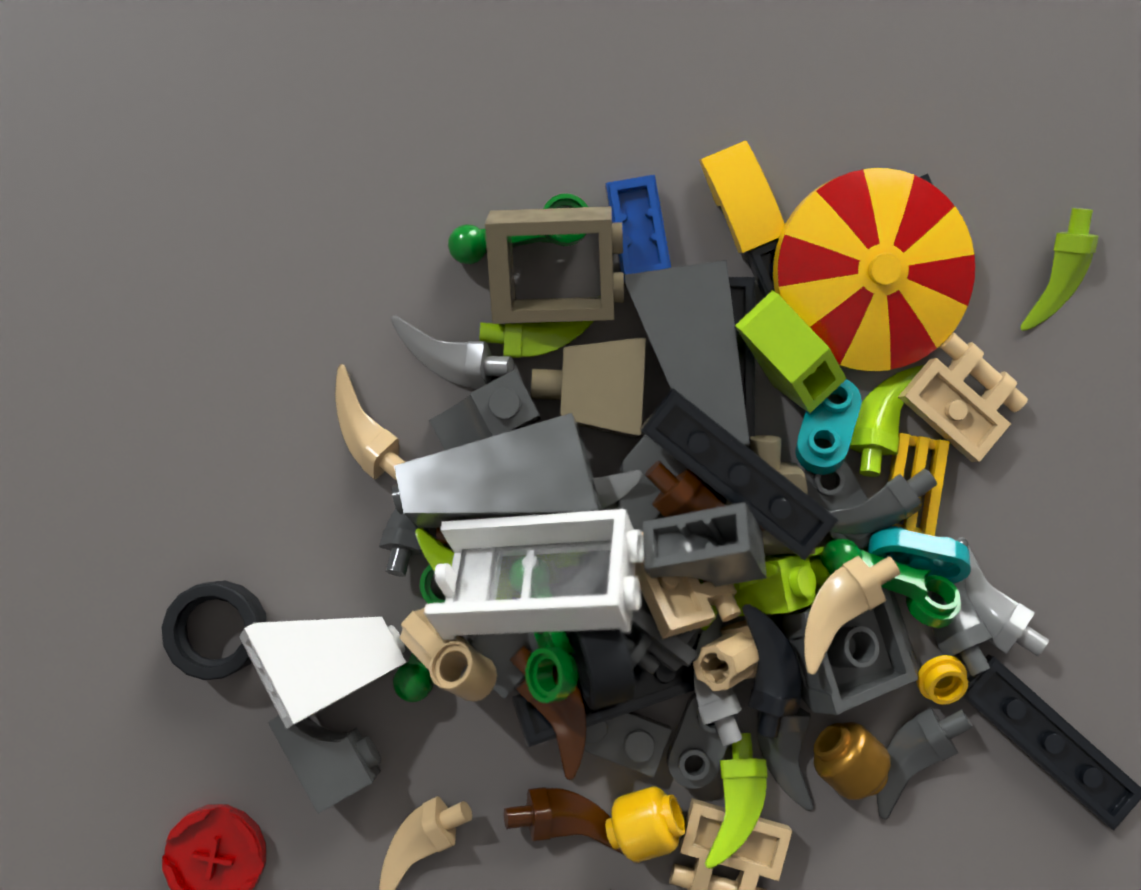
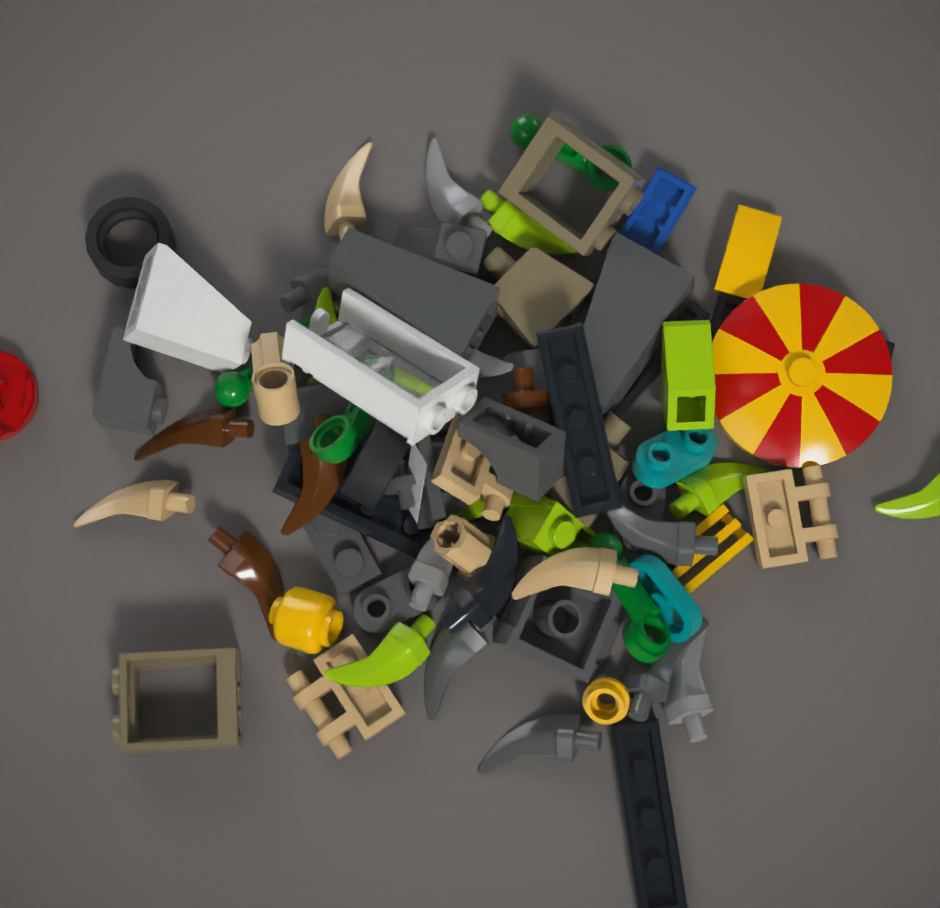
camera: 40 degrees right, 10 degrees down
(418, 731) = (206, 427): none -> reddish brown bar
(638, 634) = (416, 467): none -> white sticker
(851, 760) = (490, 701): pearl gold head -> none

